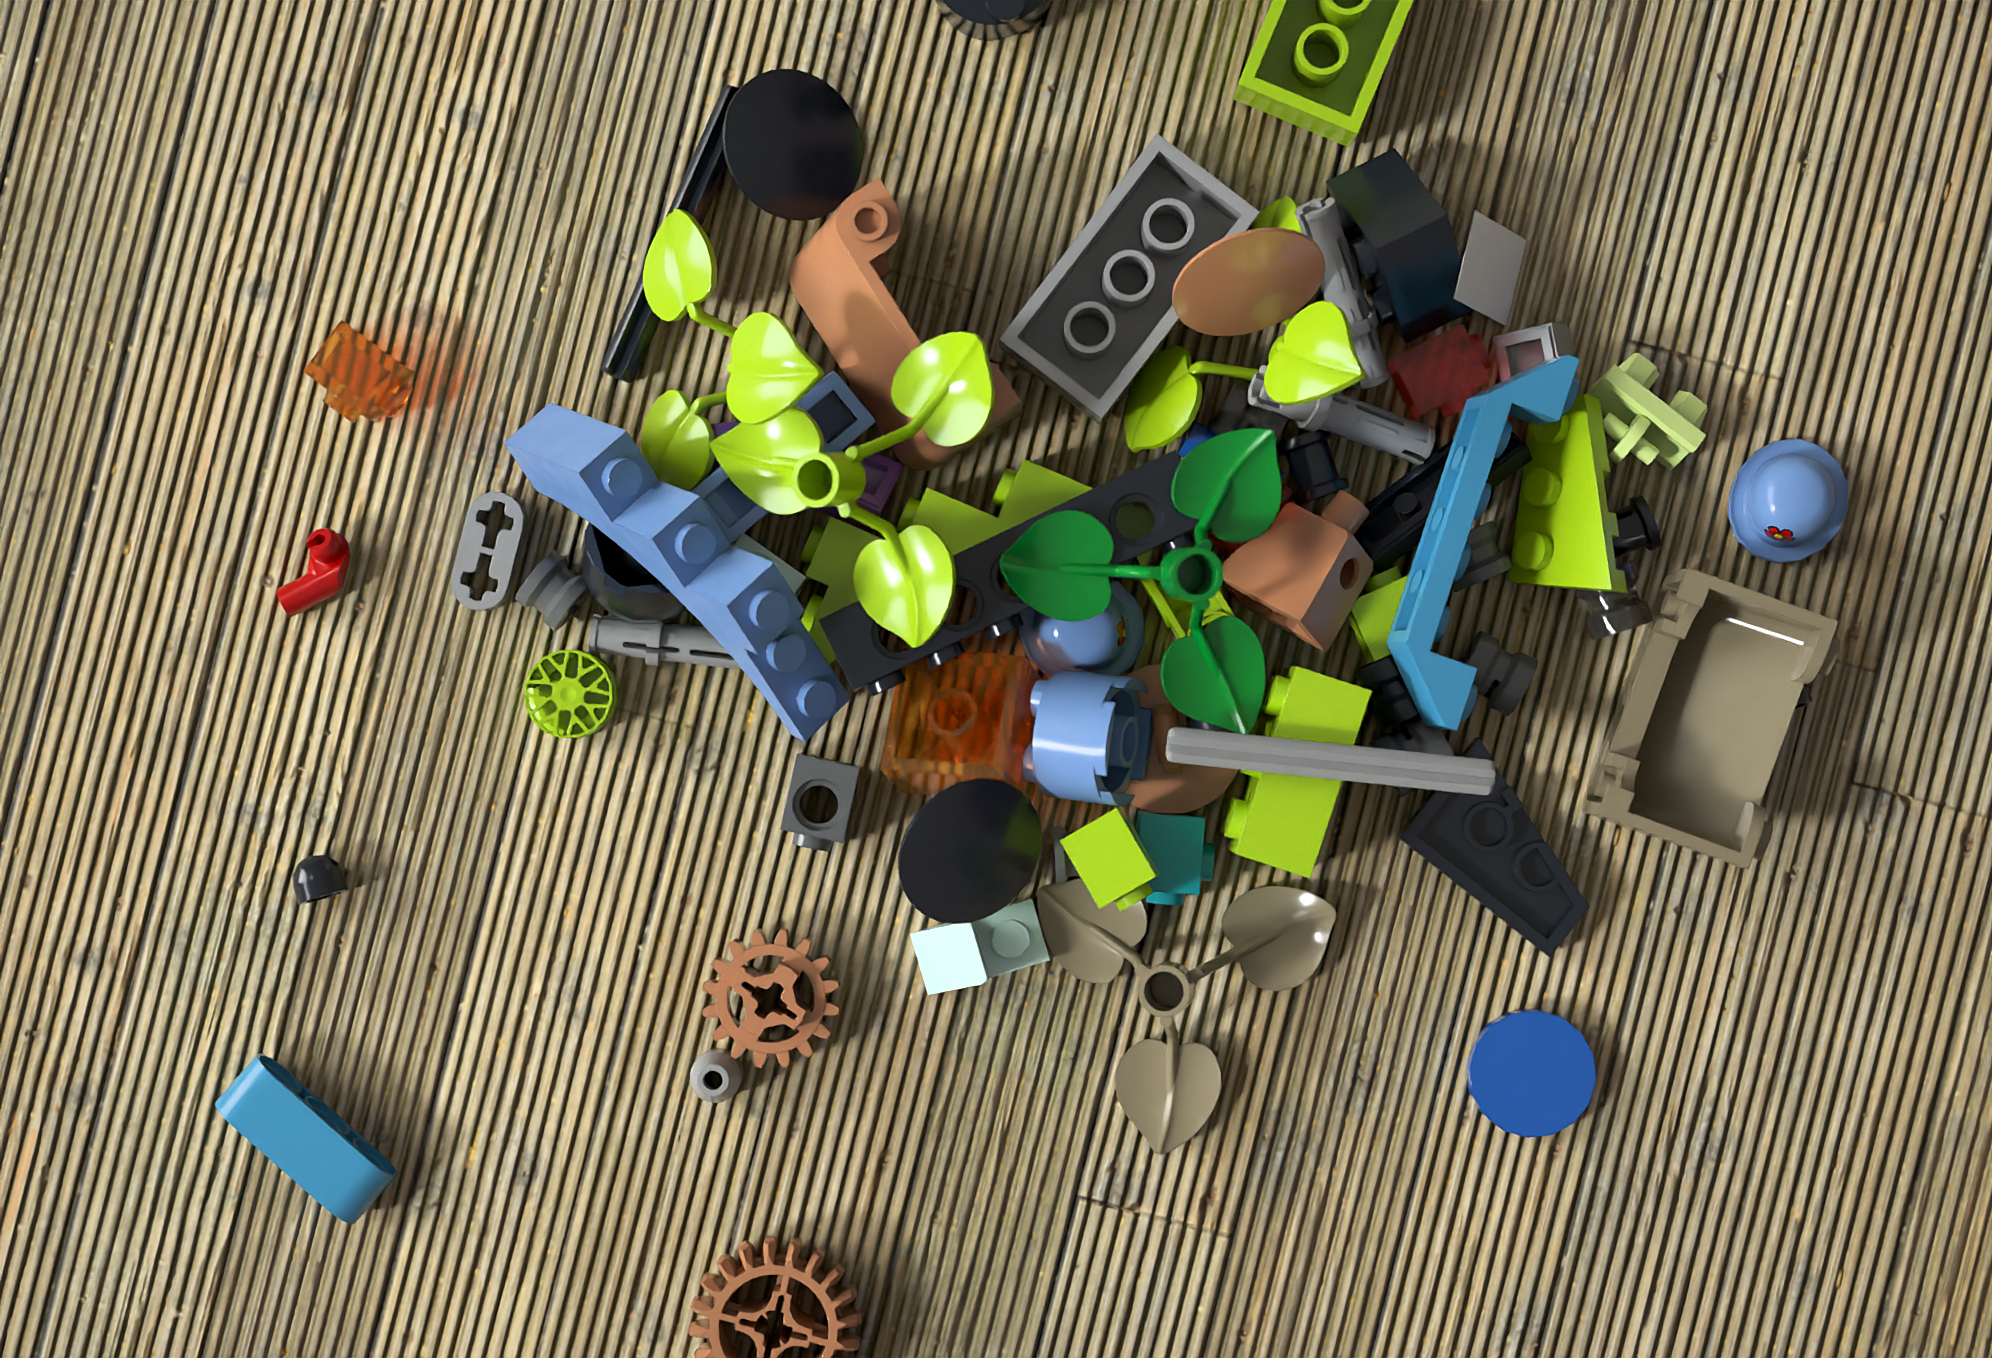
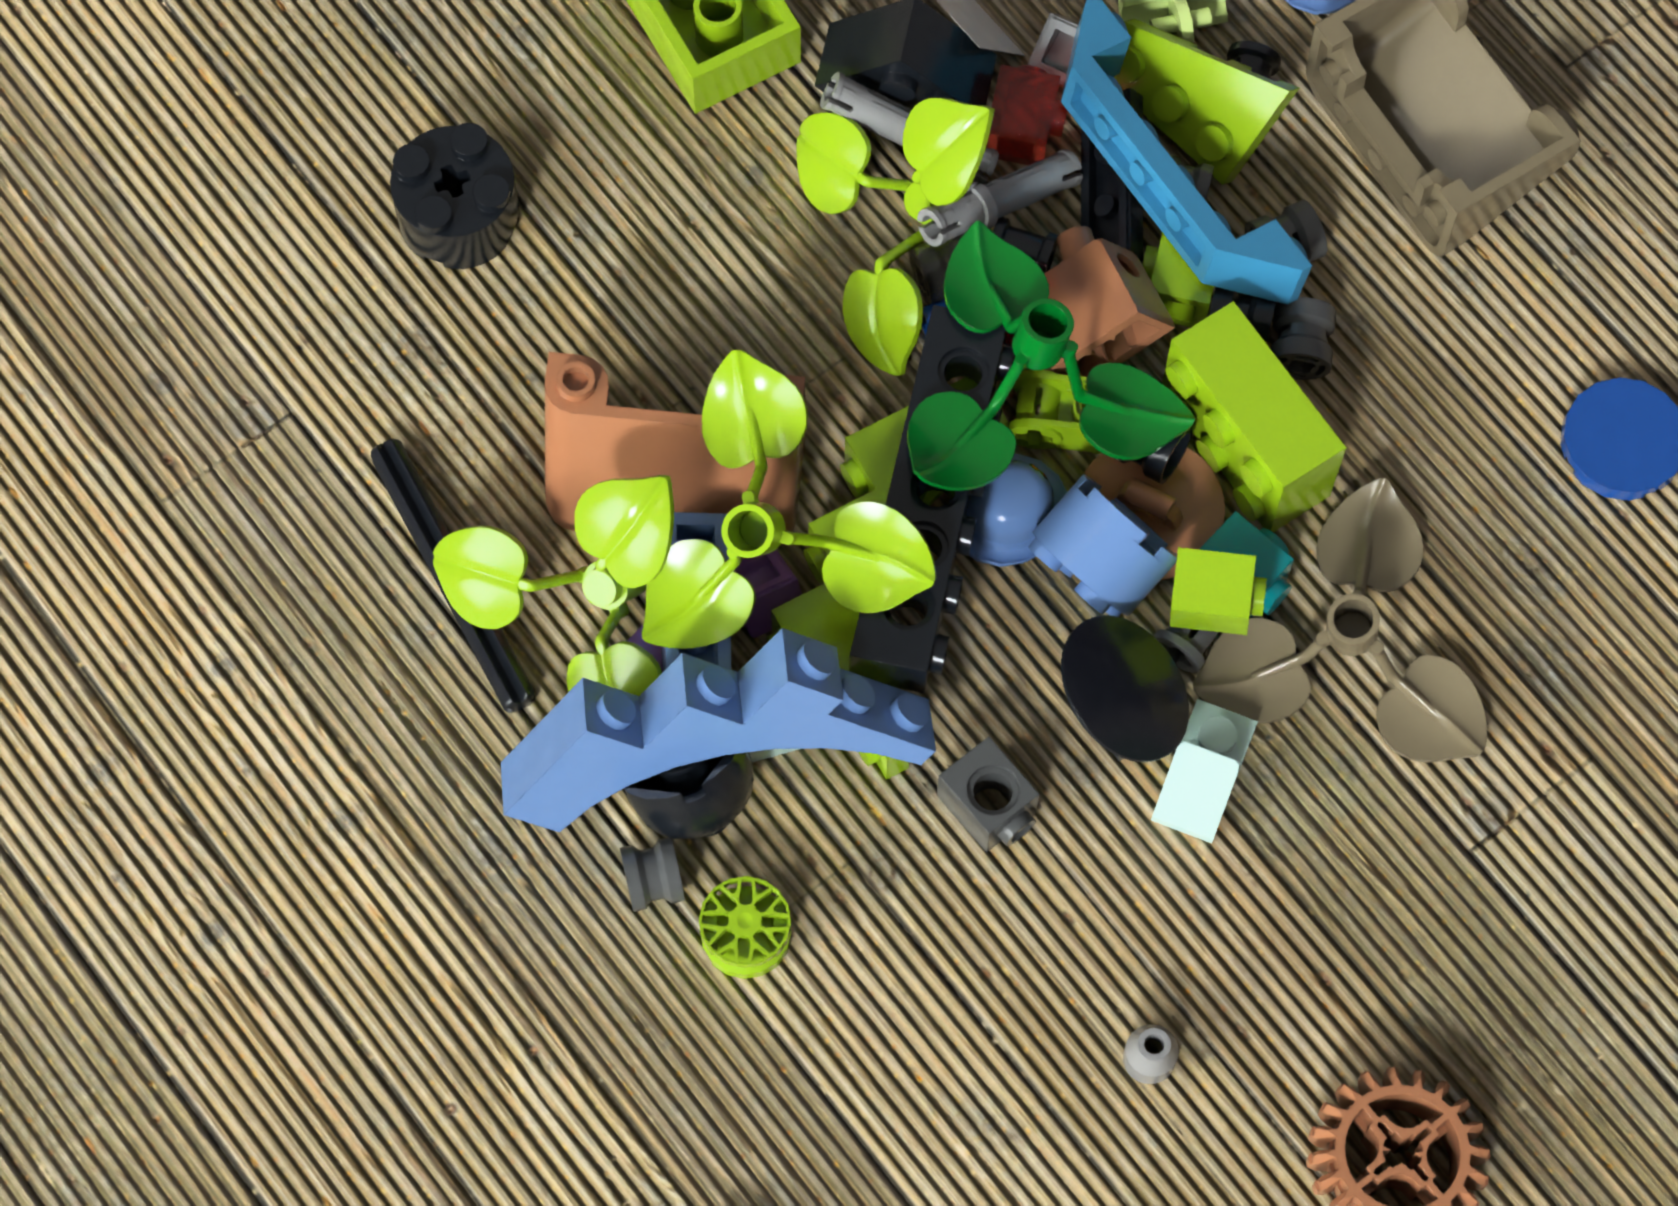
camera: 50 degrees left, 20 degrees down
(324, 573) = (483, 1051): red arm -> none
(360, 375) = (352, 893): clear orange brick -> none
(504, 555) = (564, 916): light grey beam -> none
(657, 642) = (758, 827): light grey pin -> none
(792, 144) = (459, 433): black shield -> none
(796, 1015) = (1112, 929): nougat gear -> none
(960, 723) = (1012, 636): clear orange slope -> none
(1113, 287) = (773, 261): light grey brick -> none
(1248, 281) = (848, 169): nougat shield -> none
(1330, 761) = (1264, 363): light grey axle -> none
(1498, 858) = (1421, 341): black wing -> none
(1614, 610) = (1302, 124): clear smoke wheel -> none

